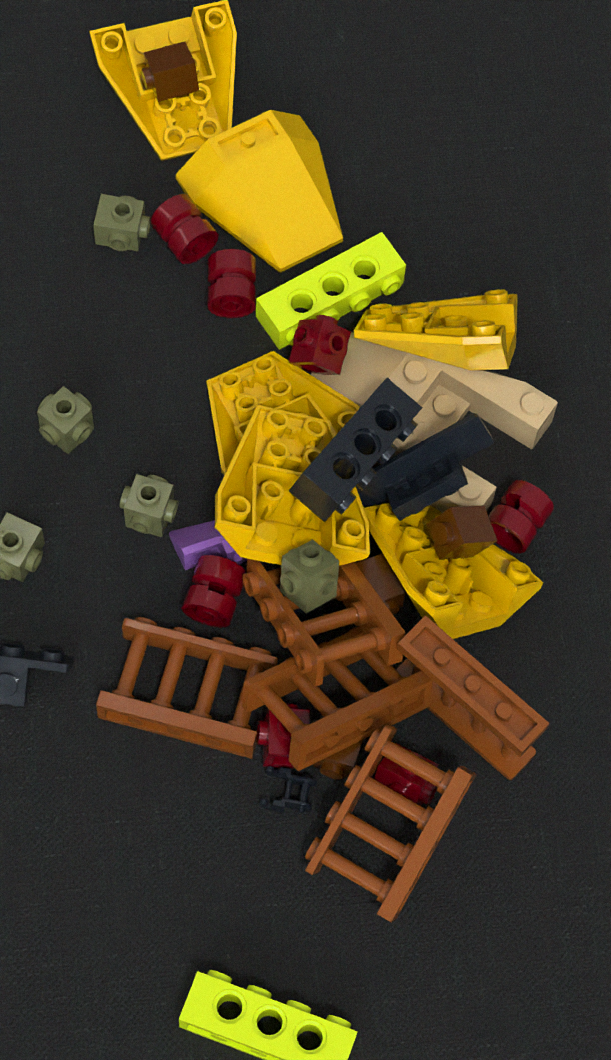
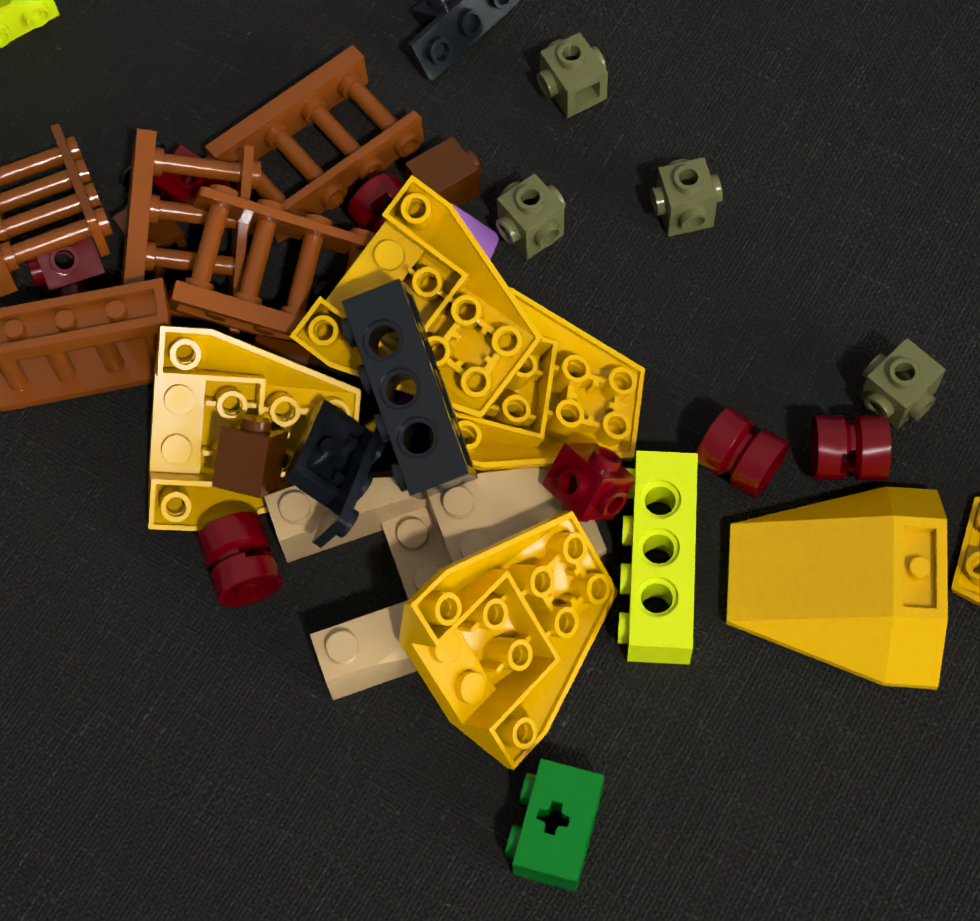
camera: 135 degrees right, 0 degrees up
(155, 582) = (448, 171): none -> reddish brown brick
(309, 576) = (302, 275): olive brick -> none
(530, 250) = (561, 856): none -> green brick

